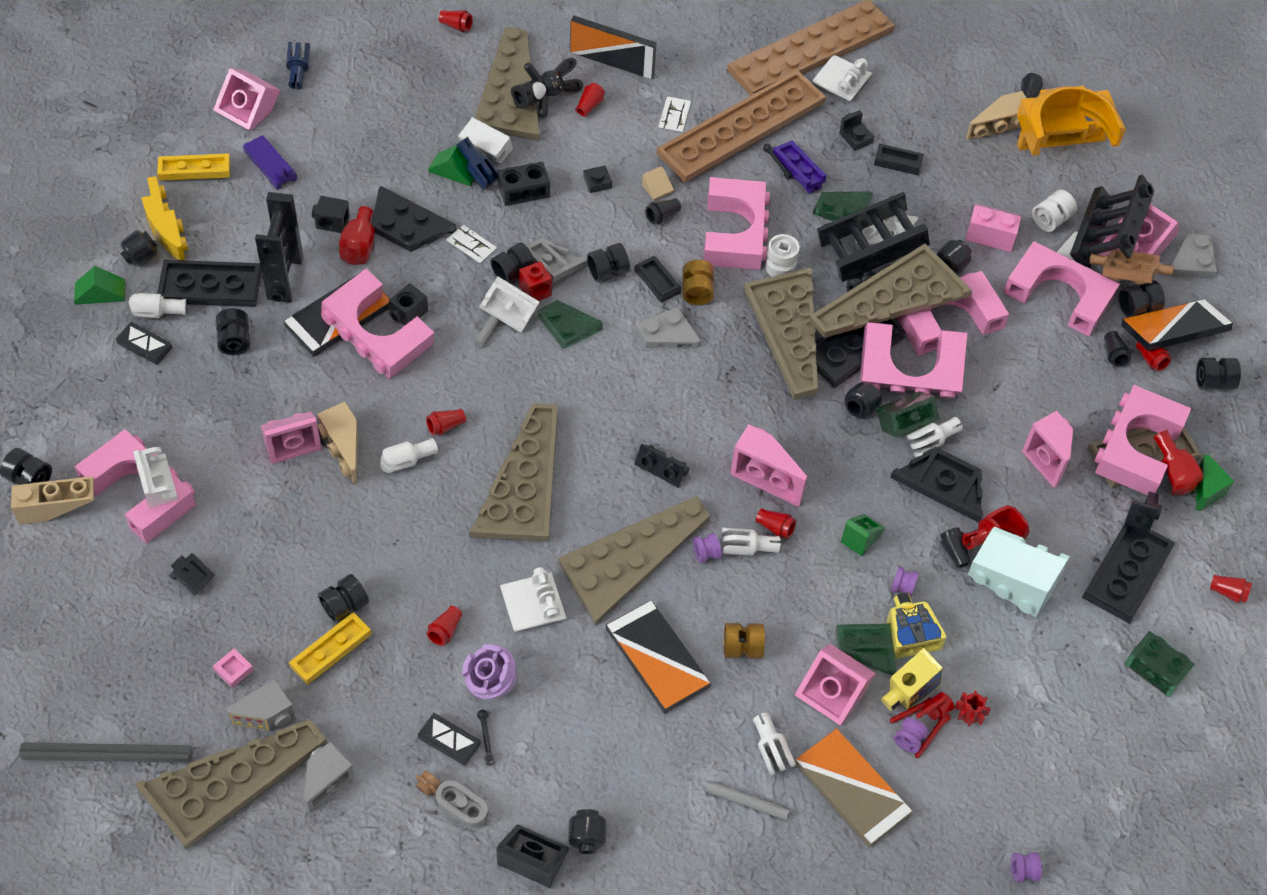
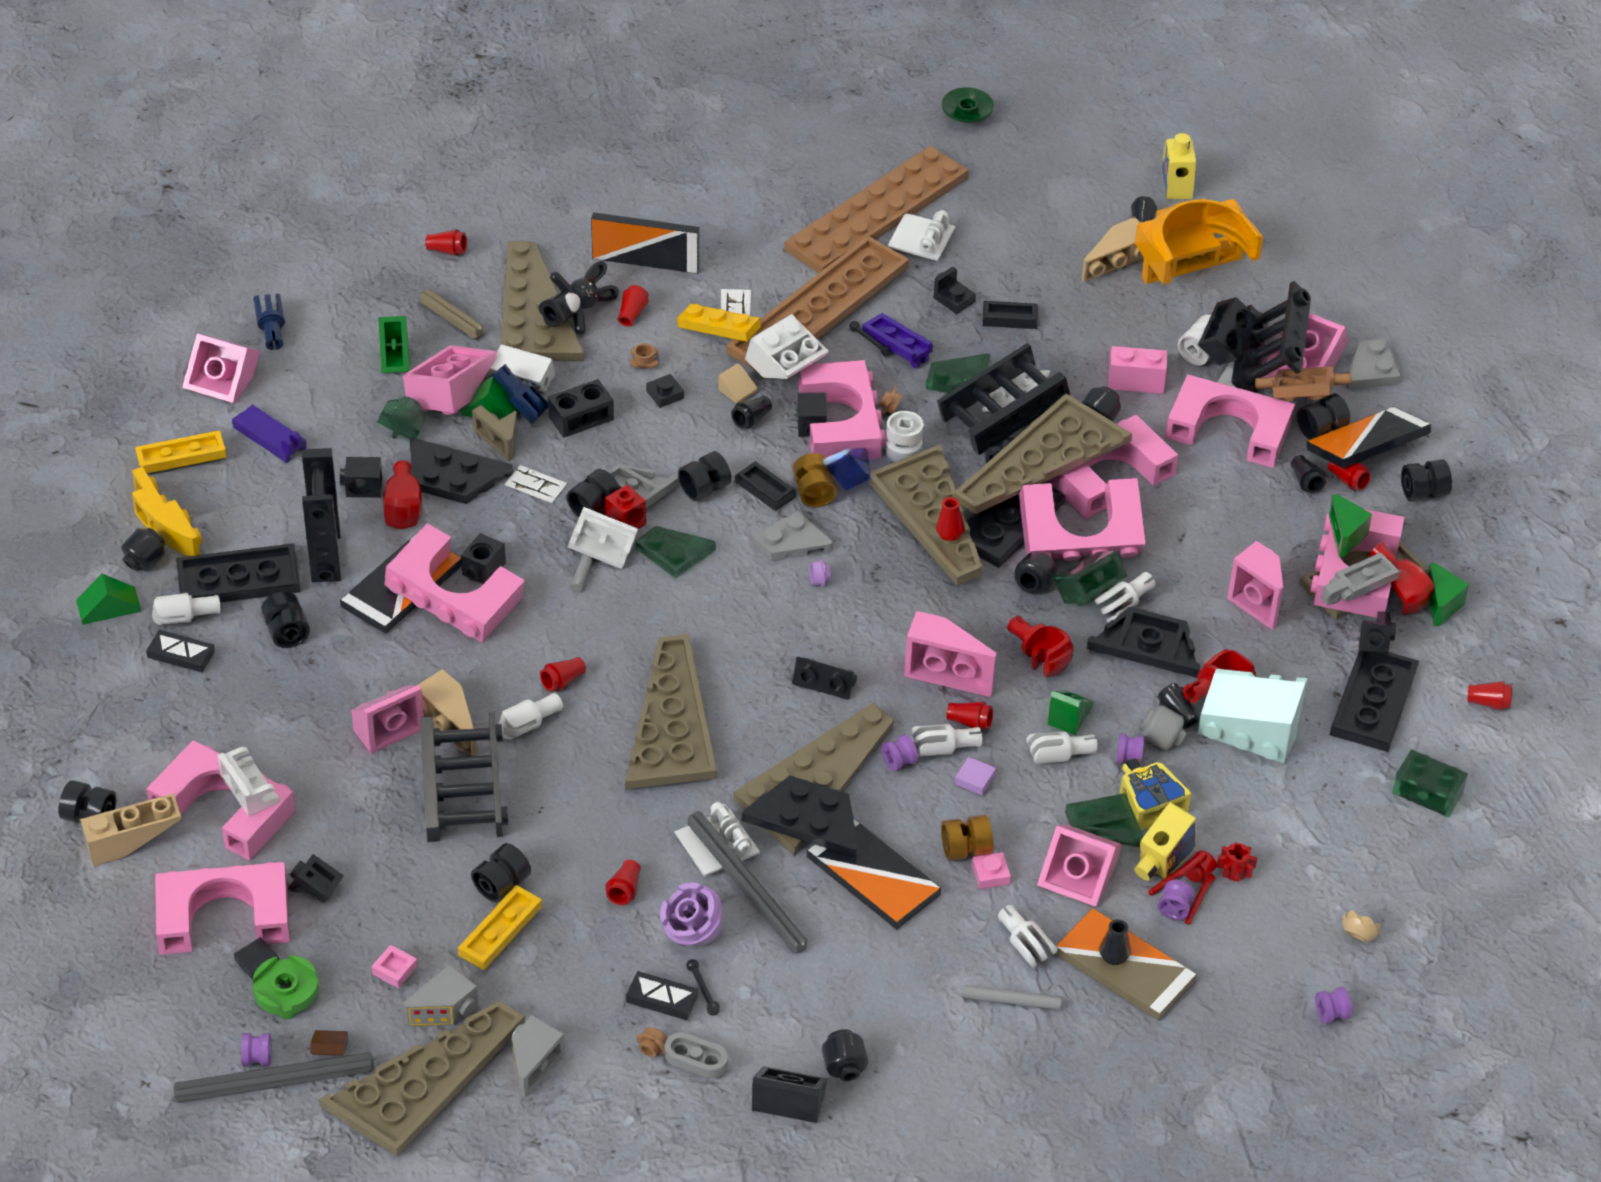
camera: 10 degrees left, 10 degrees down
(78, 567) = (184, 892): none -> bright pink arch
(97, 725) = (256, 1049): none -> medium lavender wheel
(124, 637) = (253, 956): none -> black tile
(146, 681) = (285, 1001): none -> bright green plate
(159, 730) = (329, 1042): none -> reddish brown tile
(309, 513) = (436, 792): none -> black fence
(378, 167) = (403, 417): none -> clear green piece
(388, 102) = (393, 344): none -> green slope
(422, 139) = (448, 378): none -> bright pink slope
(443, 82) = (452, 314): none -> dark tan axle
(452, 194) = (498, 433): none -> dark tan slope
(547, 647) = (747, 882): none -> dark grey axle
(588, 146) = (644, 356): none -> medium nougat plate
(613, 592) = (807, 813): none -> black wing
(656, 126) = (719, 322): none -> yellow plate
(681, 367) = (819, 573): none -> lavender plate
(700, 162) = (784, 349): none -> white slope
(711, 219) = (810, 410): none -> black brick
(730, 276) = (849, 467): none -> clear blue slope
(758, 673) = (991, 870): none -> bright pink plate
(766, 580) = (975, 776): none -> lavender tile
(779, 221) = (890, 401): none -> medium nougat plate
(799, 343) = (950, 521): none -> red cone
(844, 567) = (1059, 746): none -> white arm
(846, 772) = (1116, 945): none -> black cone
(853, 469) = (1043, 645): none -> red piece
(937, 567) = (1163, 728): none -> light grey head
(1067, 794) = (1360, 926): none -> tan plate
(1070, 41) = (1179, 155): none -> light yellow torso
(1076, 208) = (1227, 331): none -> black brick
(1139, 462) = (1360, 579): none -> light grey hinge
(1140, 408) = (1348, 523): none -> green slope

